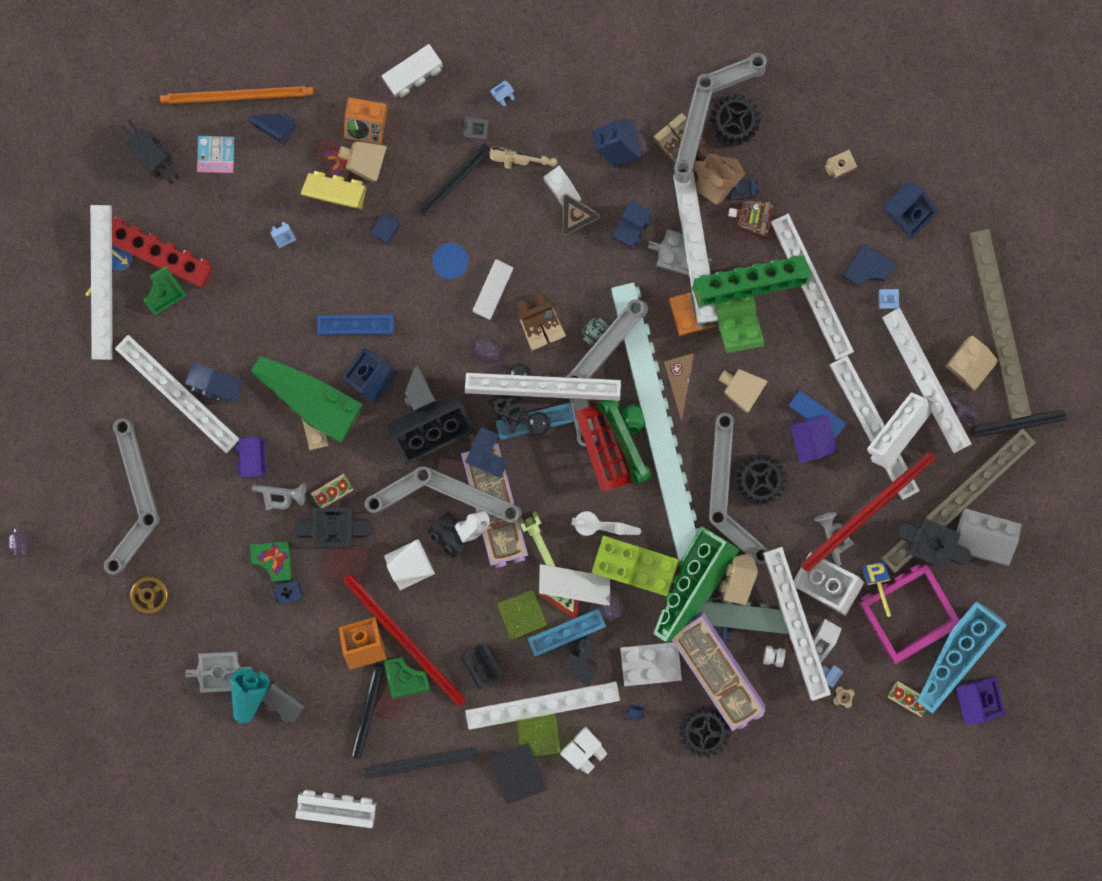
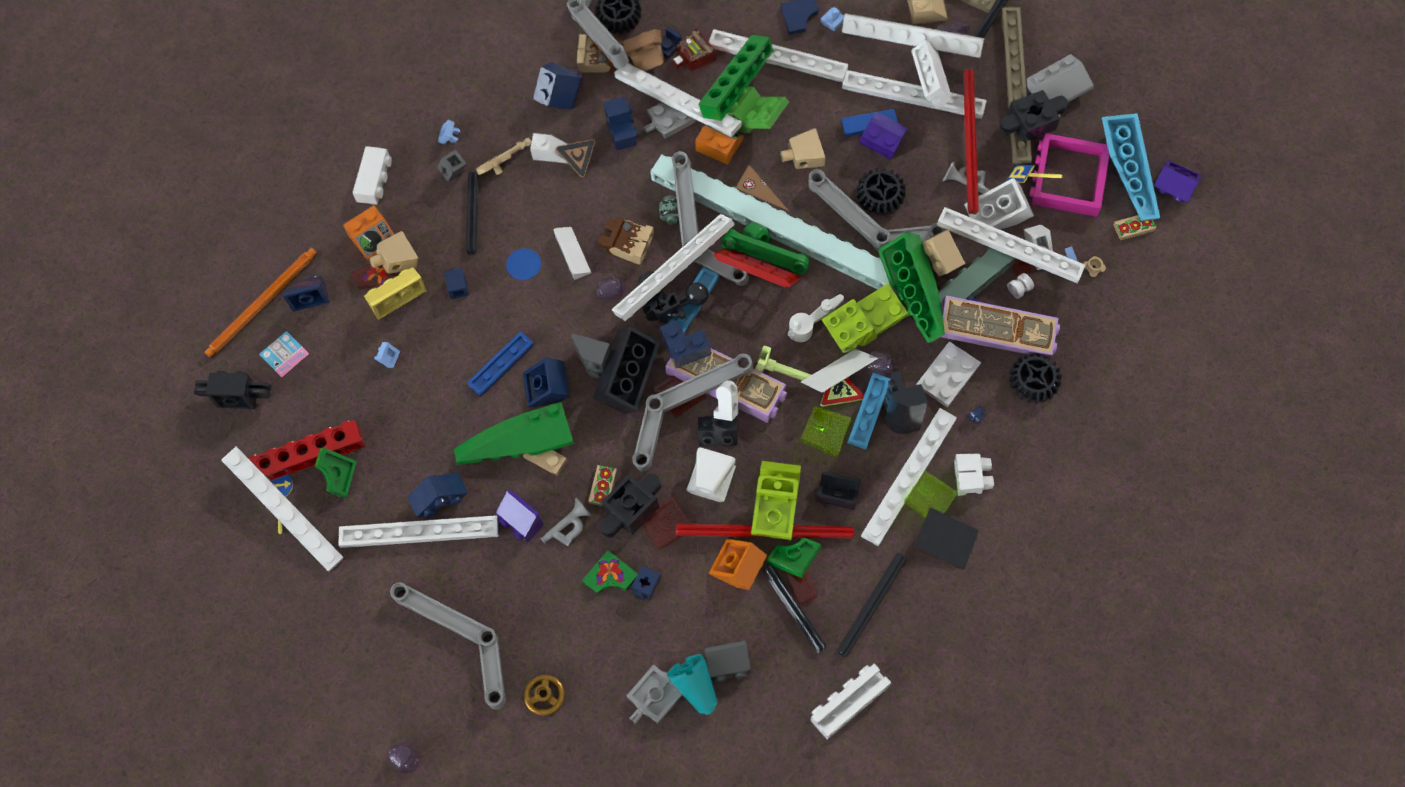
camera: 45 degrees left, 20 degrees down
(432, 629) = (776, 500): none -> lime piece

